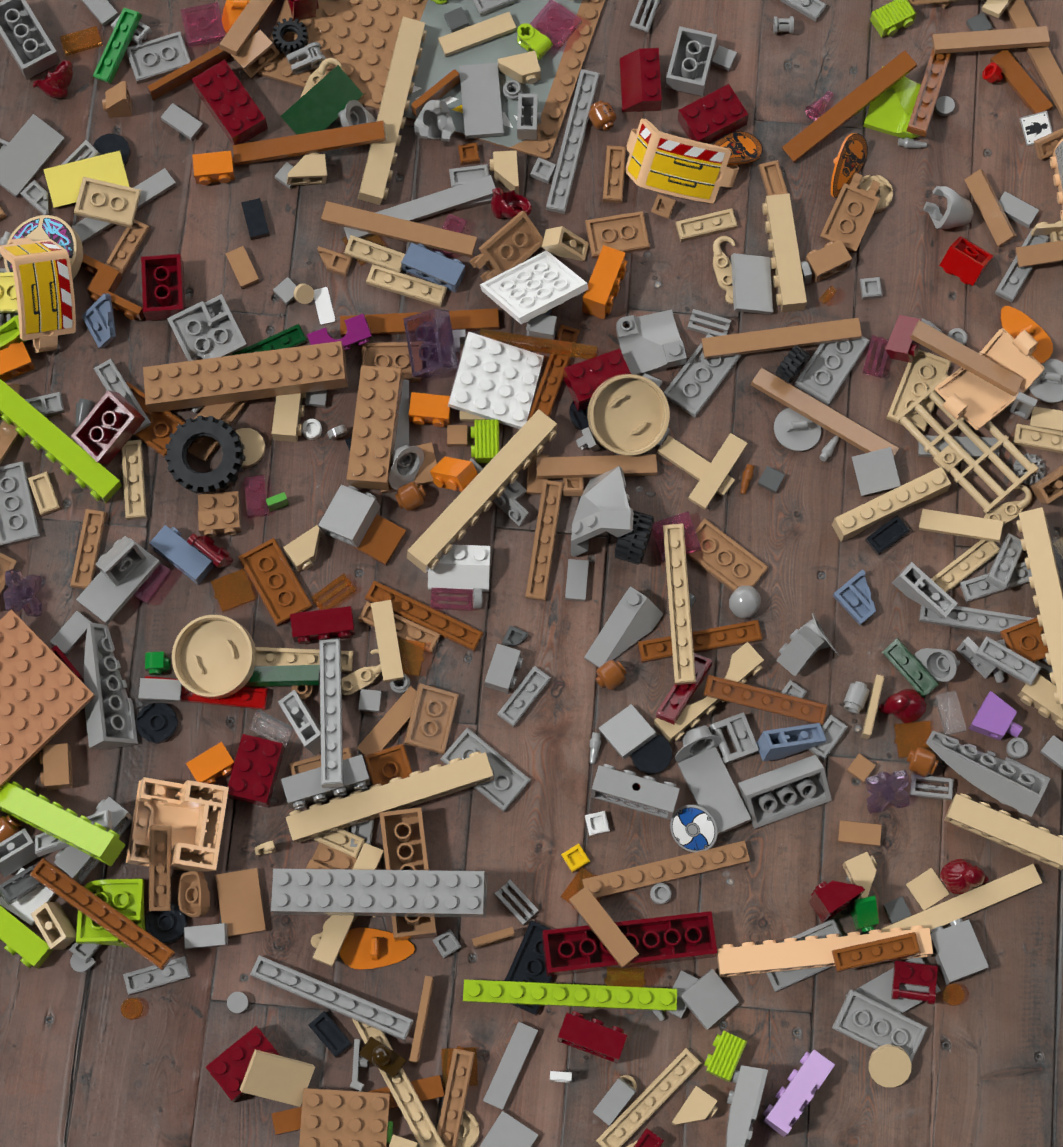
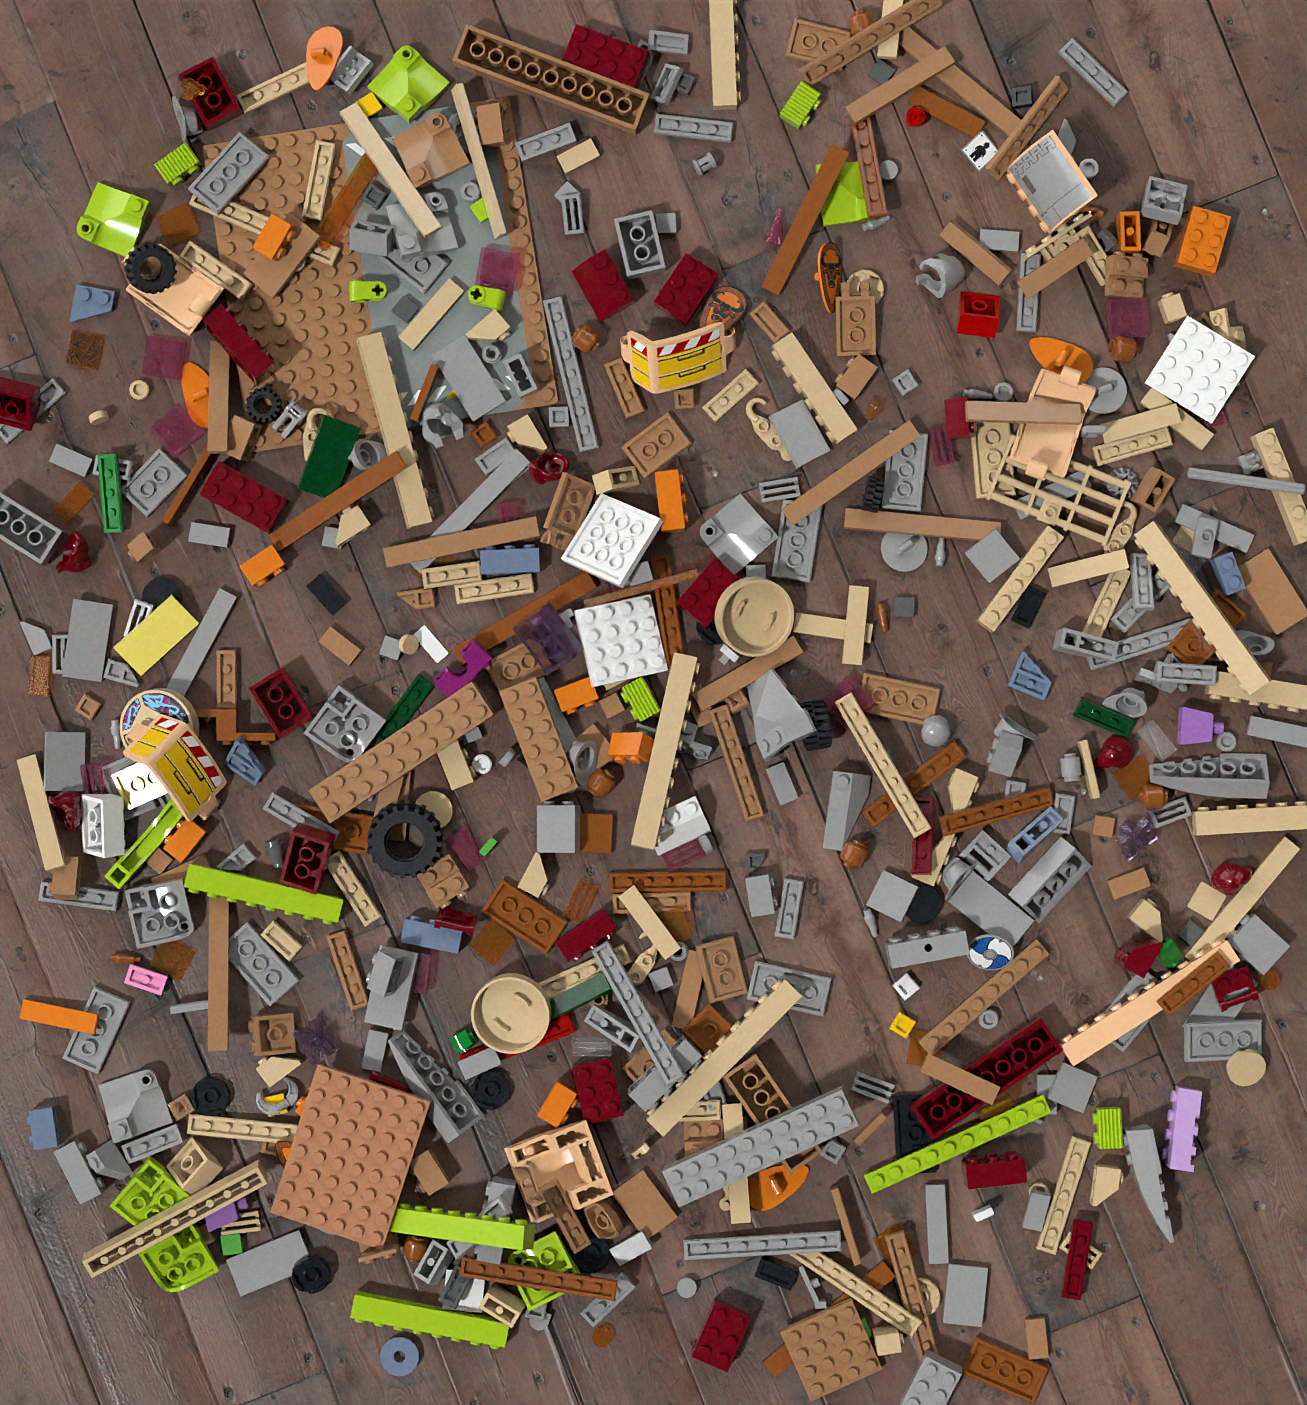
camera: 25 degrees left, 15 degrees up
(107, 202) = (187, 648): tan tile -> none
(277, 1078) = (754, 1335): tan tile -> none
(382, 1057) = (831, 1274): dark brown tile -> none

